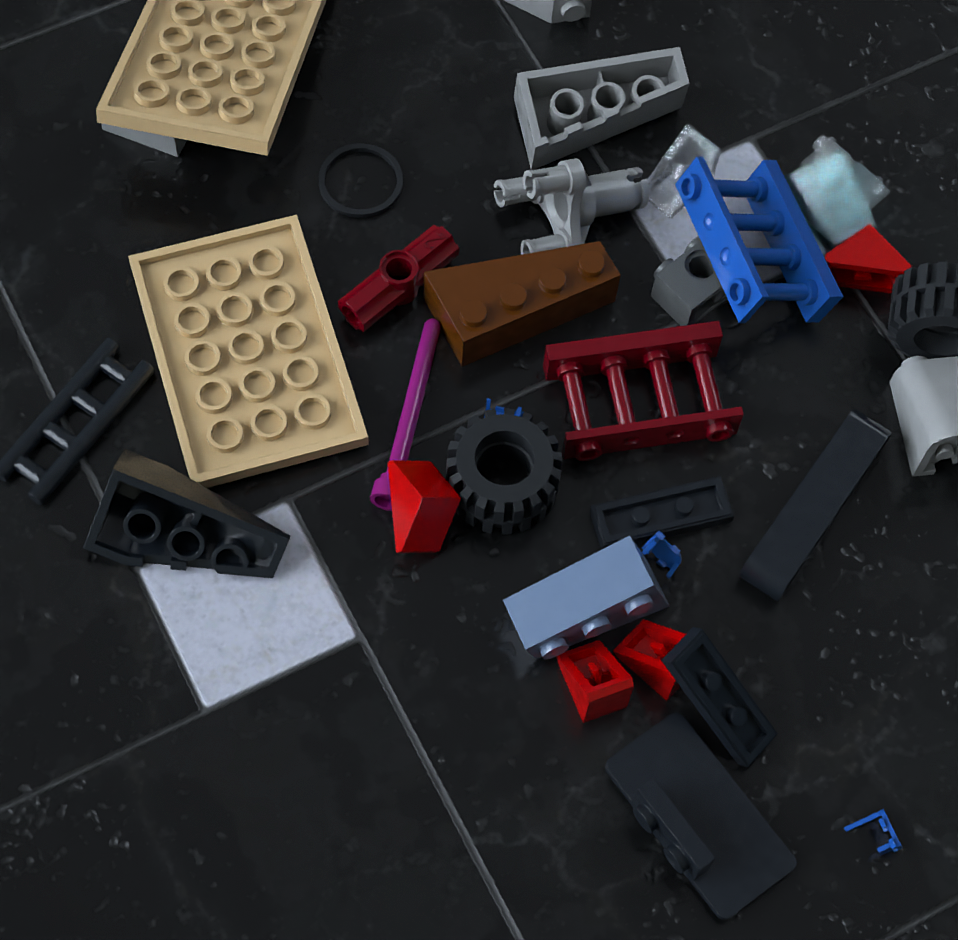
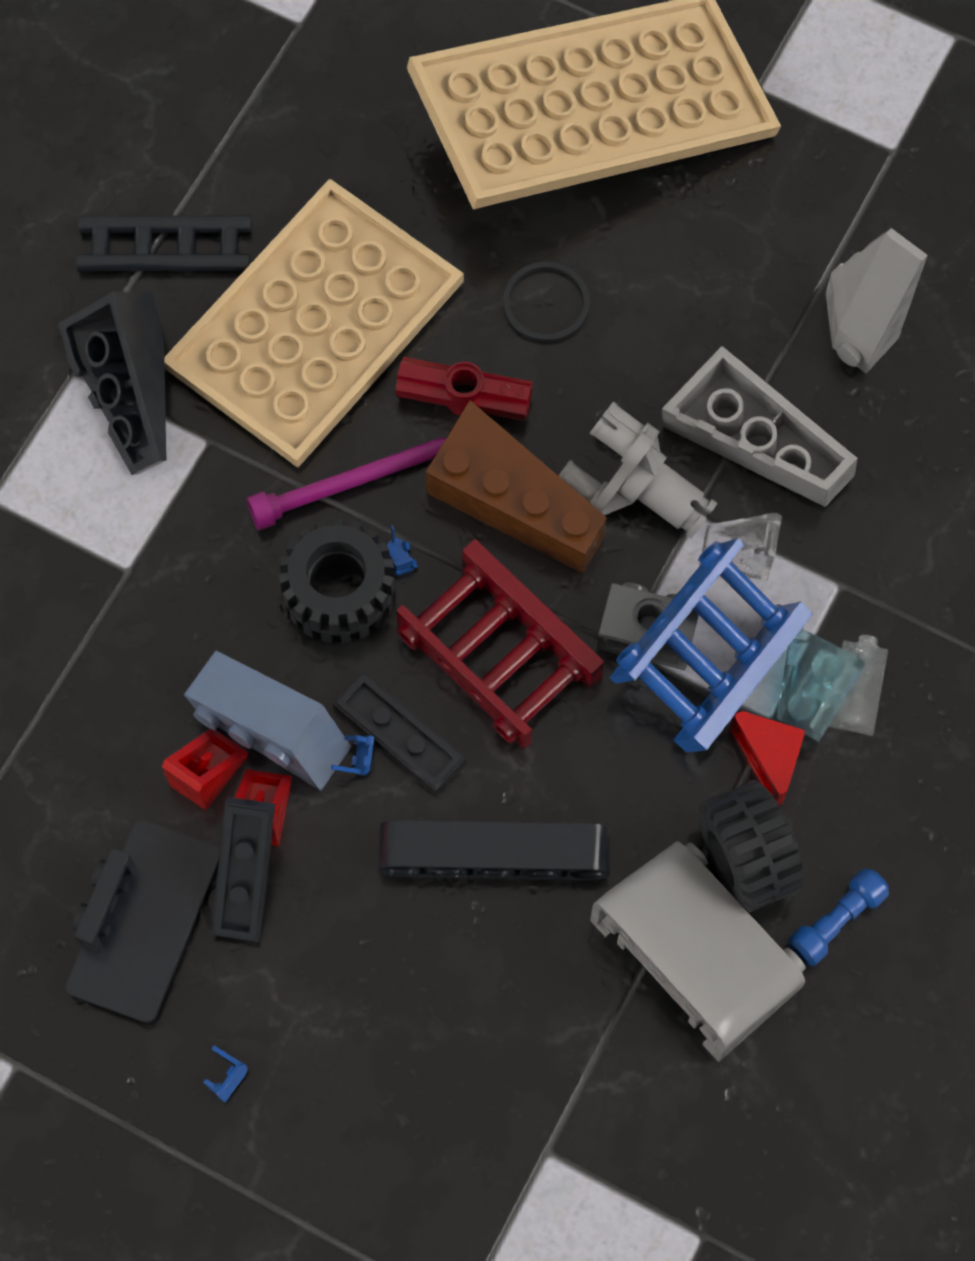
camera: 60 degrees right, 5 degrees up
(421, 505) = (260, 536): red slope -> none

